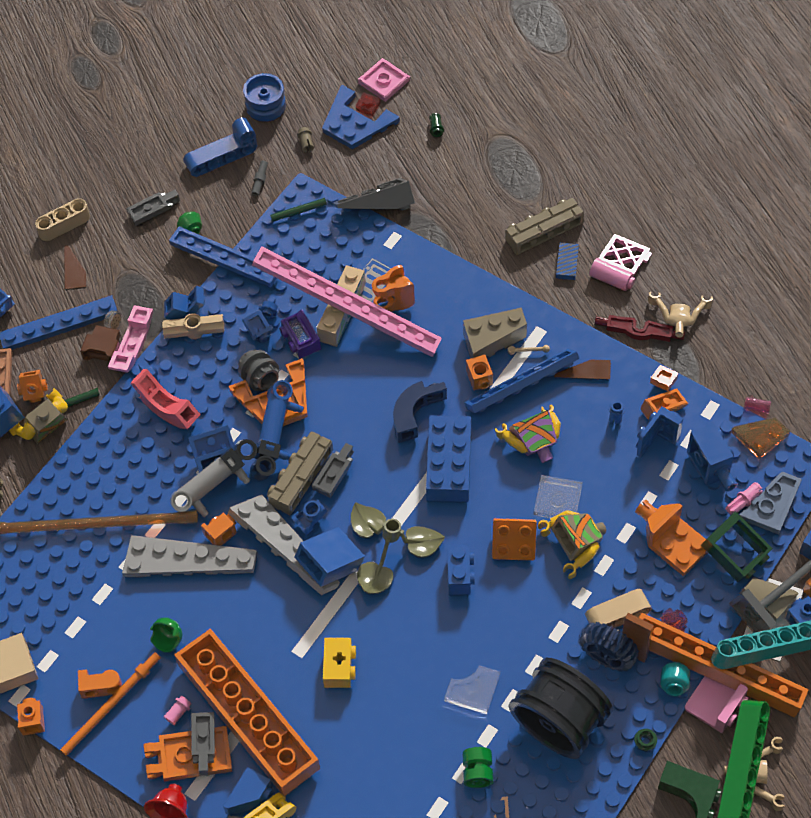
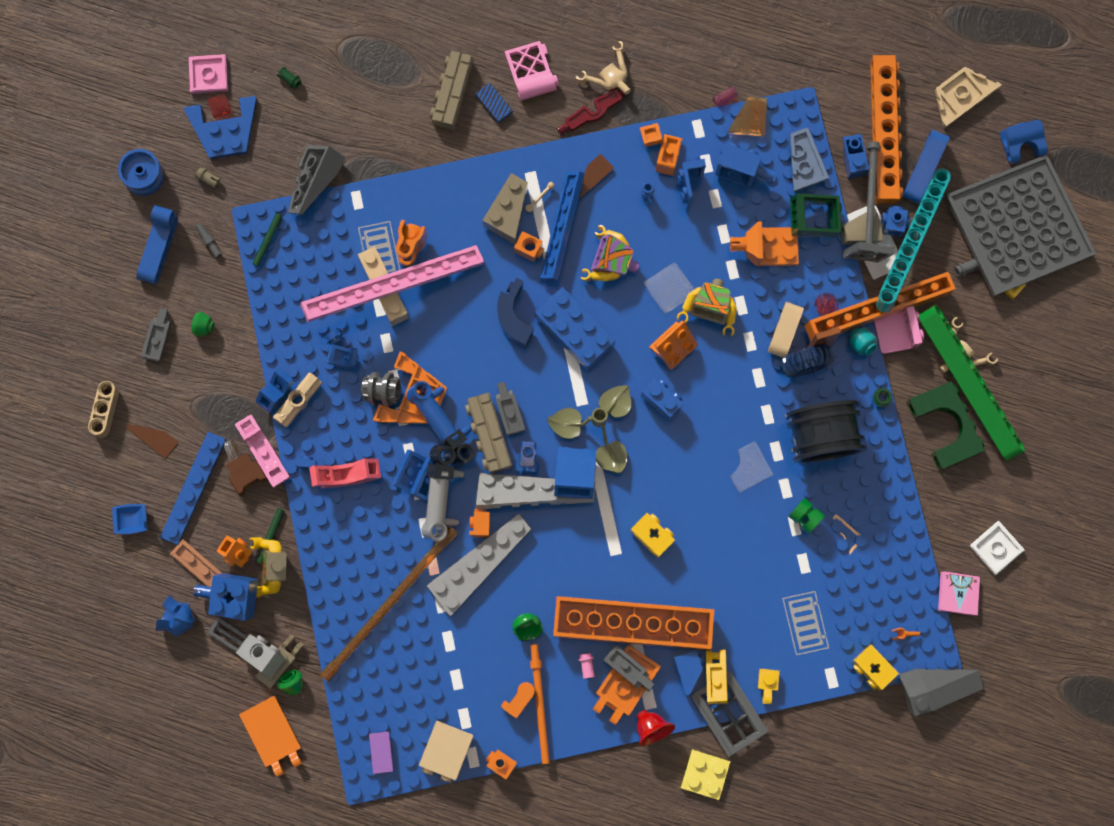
camera: 50 degrees left, 20 degrees up
(219, 255) = (252, 328): blue plate -> none
(300, 334) = (378, 335): dark purple window -> none
(744, 498) = (785, 175): bright pink axle -> none

